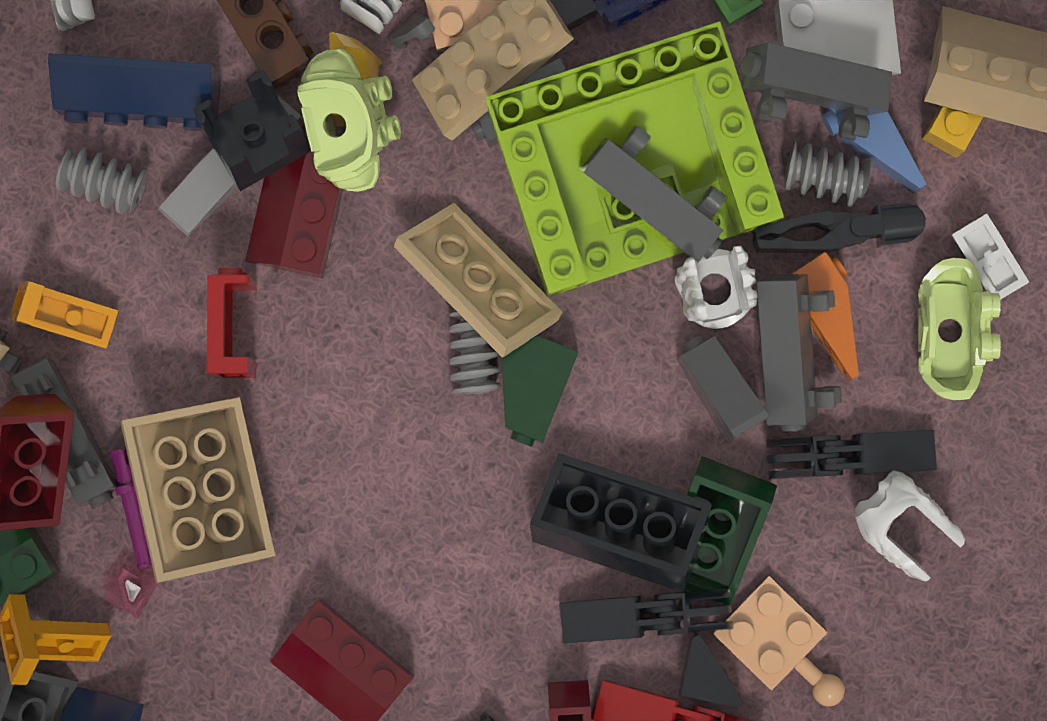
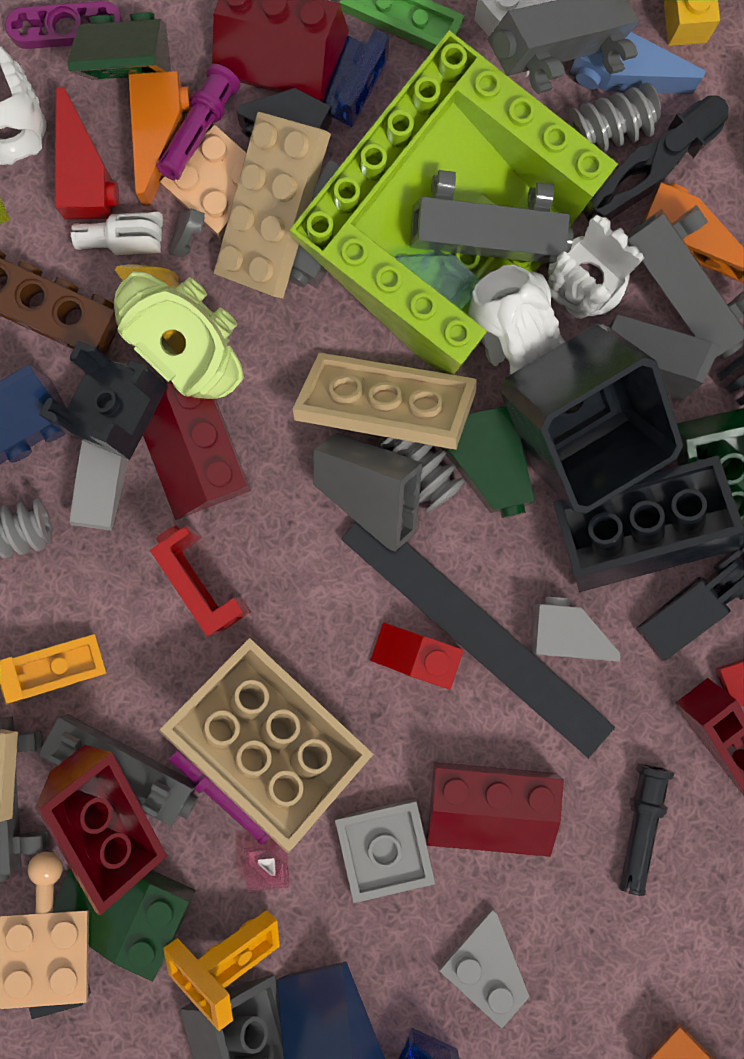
camera: 35 degrees left, 0 degrees up
(233, 641) = (384, 850): none -> light grey plate
(364, 503) = (417, 655): none -> red slope
(418, 341) = (370, 486): none -> dark grey slope
(427, 519) = (484, 640): none -> black tile
(499, 567) = (568, 632): none -> light grey slope
(589, 211) = (442, 273): none -> clear light blue slope
(625, 286) = (517, 316): none -> white piece
(628, 405) = (593, 417): none -> black plate

